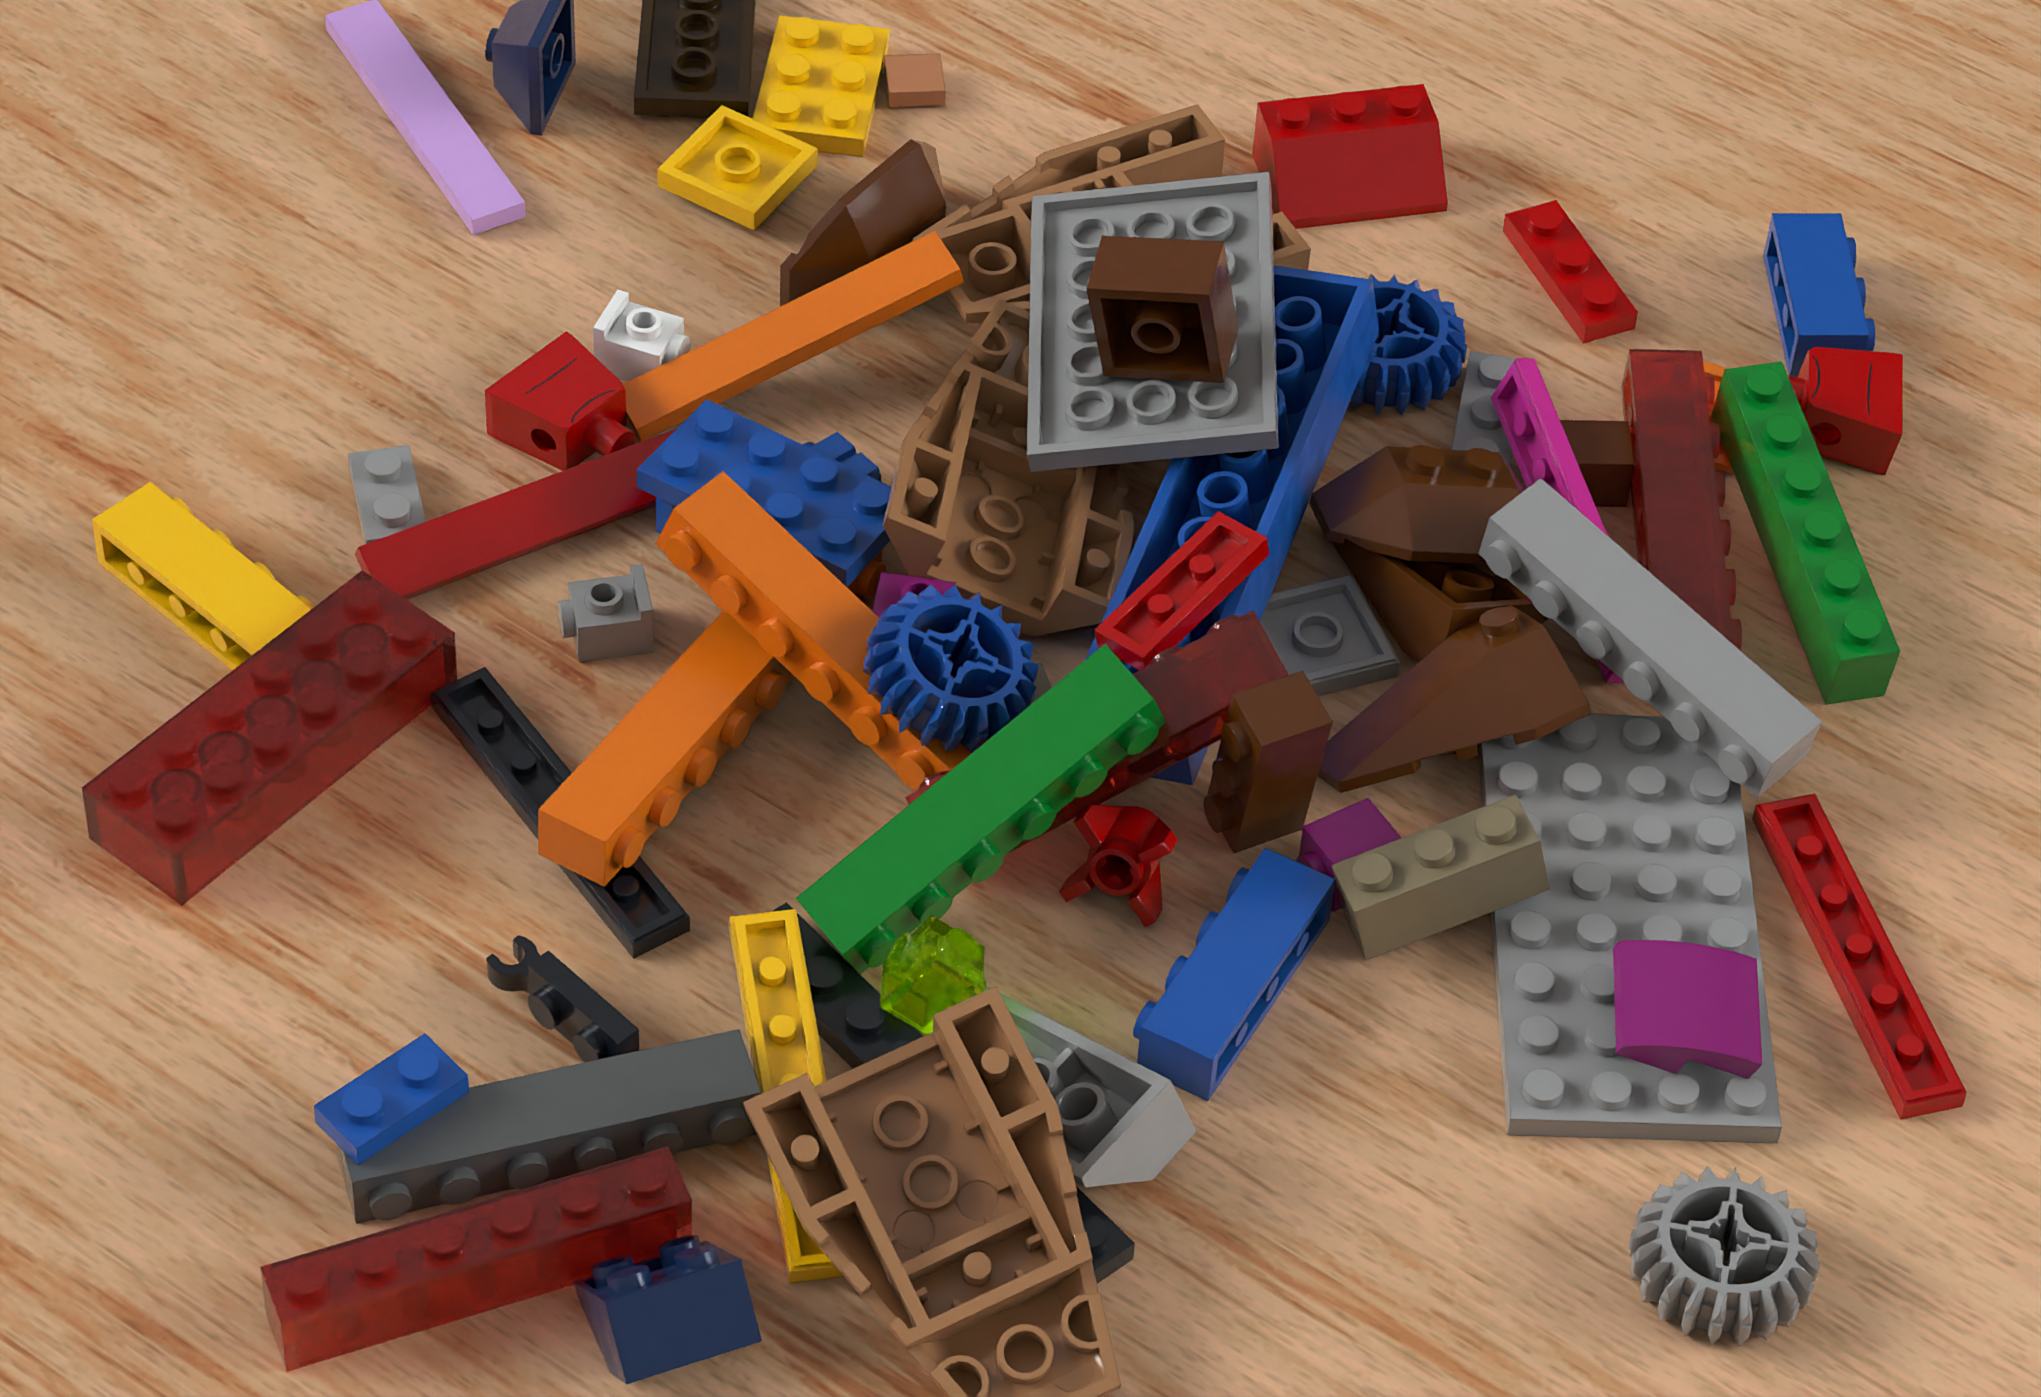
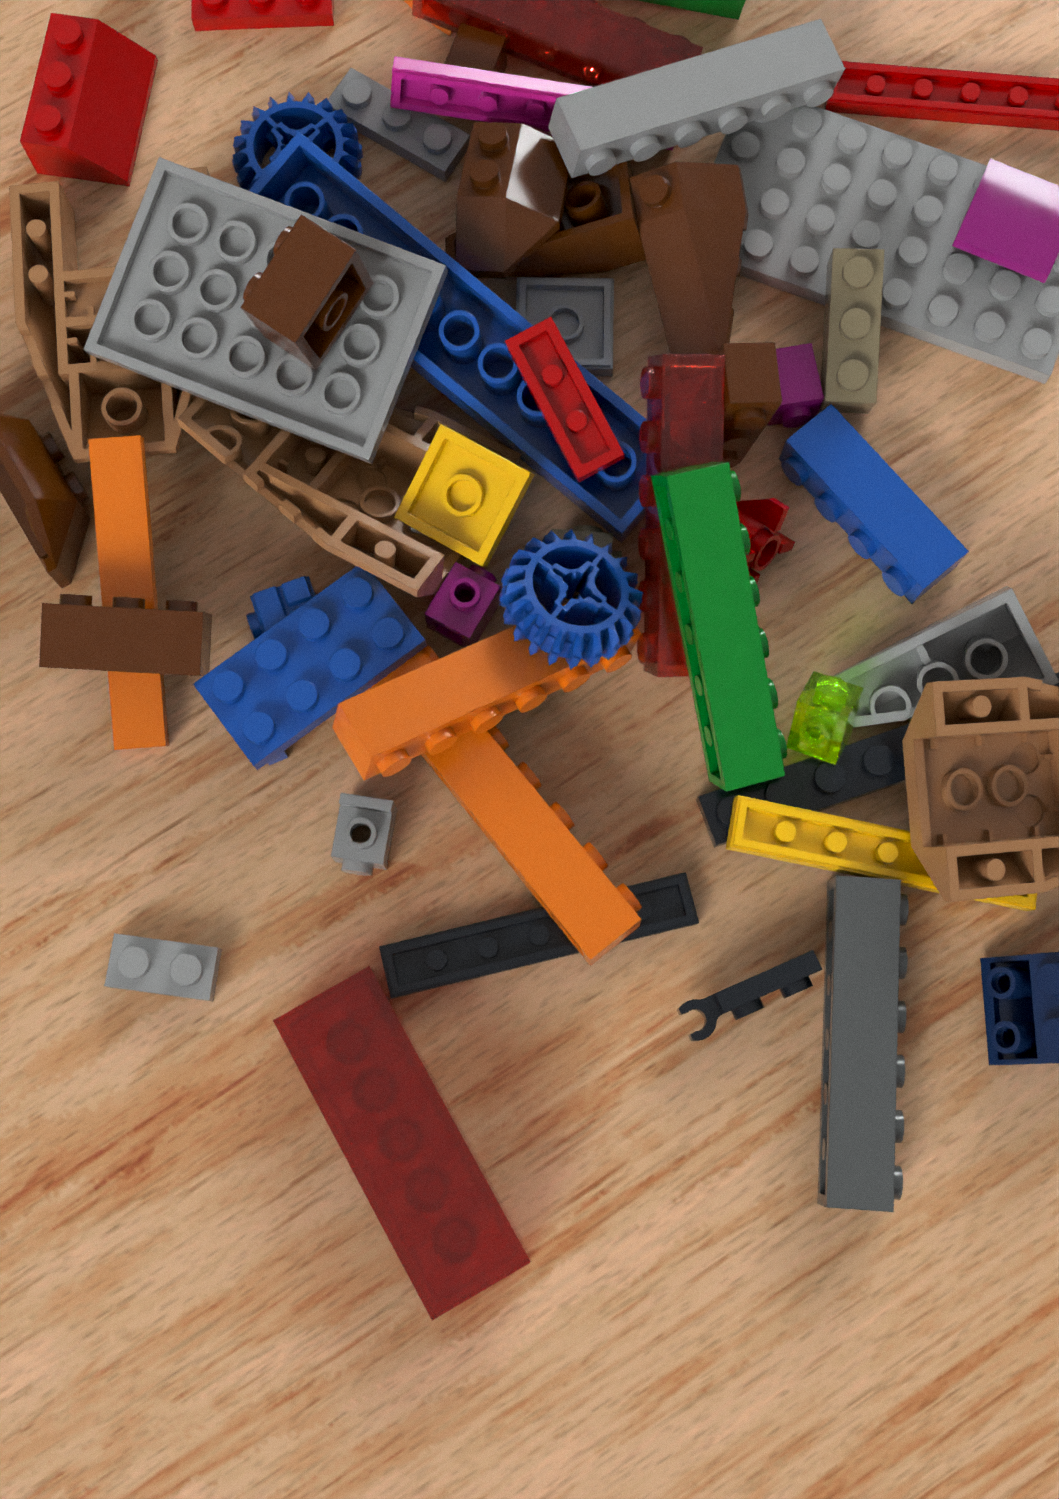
camera: 65 degrees left, 30 degrees up
(194, 575) = (212, 1148): yellow brick -> none
(391, 1099) = (833, 1160): blue plate -> none
(472, 1258) = (972, 1137): clear red brick -> none
(511, 523) = (232, 866): red tile -> none
(559, 406) = (123, 796): red torso -> none
(637, 338) = (73, 728): white brick -> none
(735, 332) = (125, 636): none -> reddish brown brick
(1034, 555) = (464, 495): none -> yellow plate

